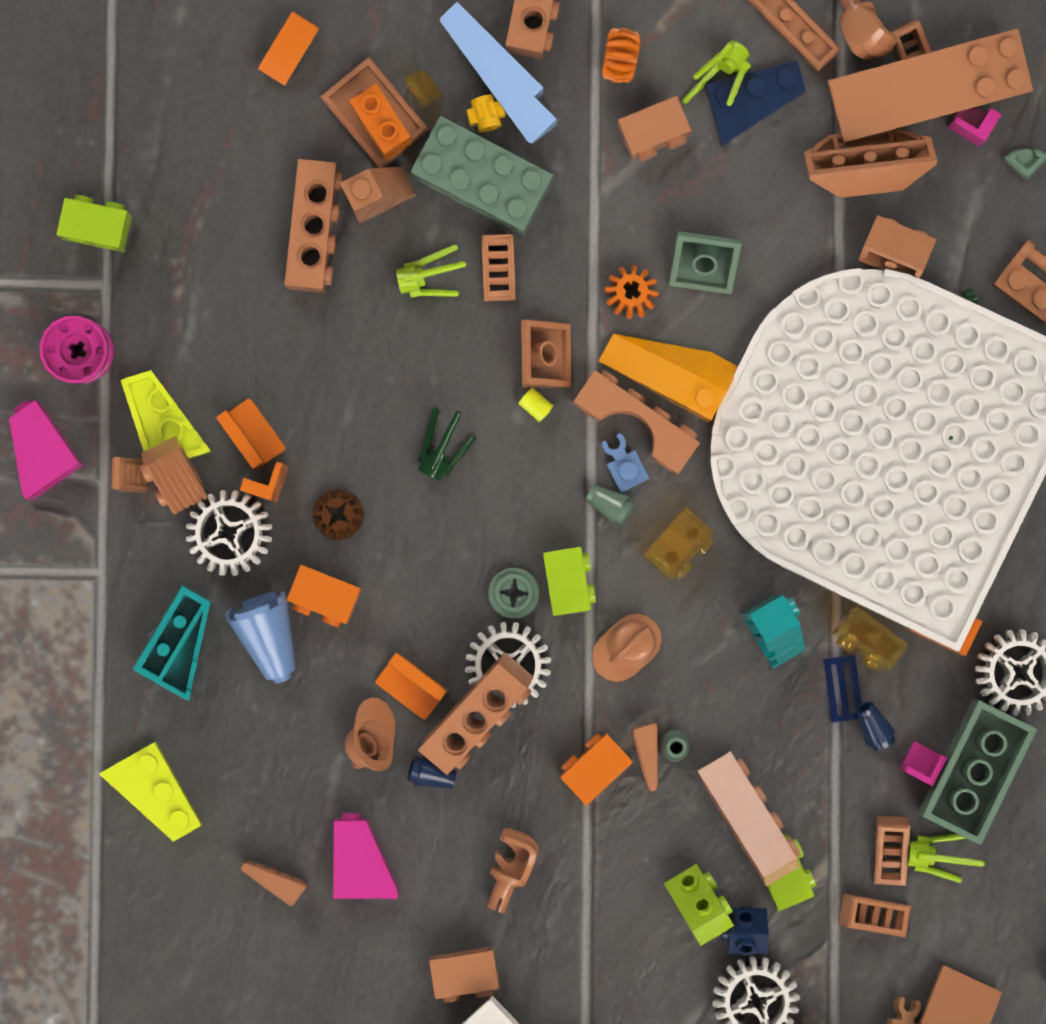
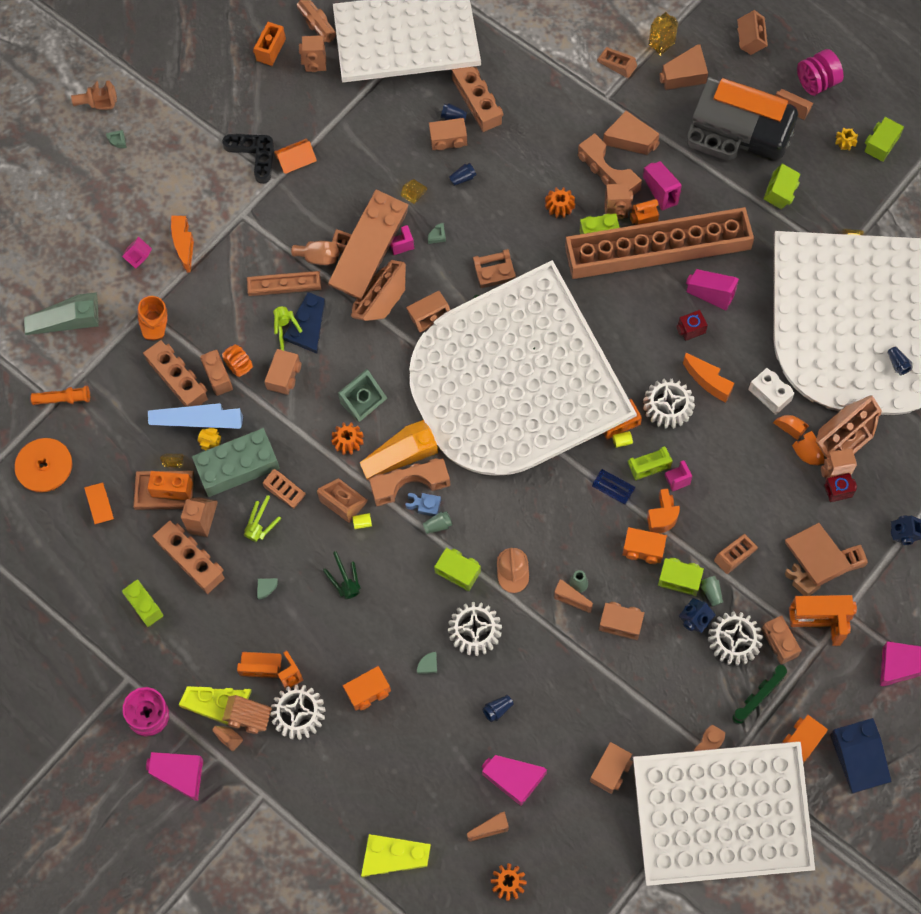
camera: 50 degrees left, 20 degrees down
(94, 224) = (95, 656): lime brick -> none
(175, 643) = (329, 781): teal wedge -> none
(207, 221) = (142, 603): none -> lime brick
(236, 965) = (515, 884): none -> orange gear
(266, 634) = (363, 732): medium blue cone -> none
(340, 529) = (342, 657): reddish brown gear -> none
(353, 356) = (266, 587): none -> sand green tile
(372, 737) = (456, 722): nougat piece -> none
(411, 686) = (446, 683): orange panel -> none
(418, 641) = (428, 664): none -> sand green tile
(502, 603) = (442, 591): sand green gear -> none
(504, 676) = (485, 690): nougat brick -> none
(512, 871) = (574, 692): nougat piece -> none
(583, 41) = (216, 372): none -> nougat brick
(595, 767) = (559, 626): orange brick -> none
(665, 840) = (621, 620): none -> nougat brick
(679, 545) = (483, 506): clear yellow brick -> none
(699, 905) = (665, 625): lime brick -> none
(749, 819) = (641, 569): brick -> none
(776, 629) = (559, 489): teal wedge -> none
(788, 793) = (644, 545): none -> orange brick
(798, 923) = (712, 590): none -> sand green cone
(850, 791) = (663, 518): none -> orange brick
(869, 639) = (599, 454): clear yellow brick -> none
(875, 728) = (644, 484): dark blue cone -> none
(891, 824) = (714, 518): nougat slope -> none
(913, 711) = (650, 463): none -> lime hinge
(919, 650) = (622, 439): none -> neon yellow hinge
(923, 854) = (722, 509): lime plant -> none
(977, 771) = (703, 453): sand green brick -> none

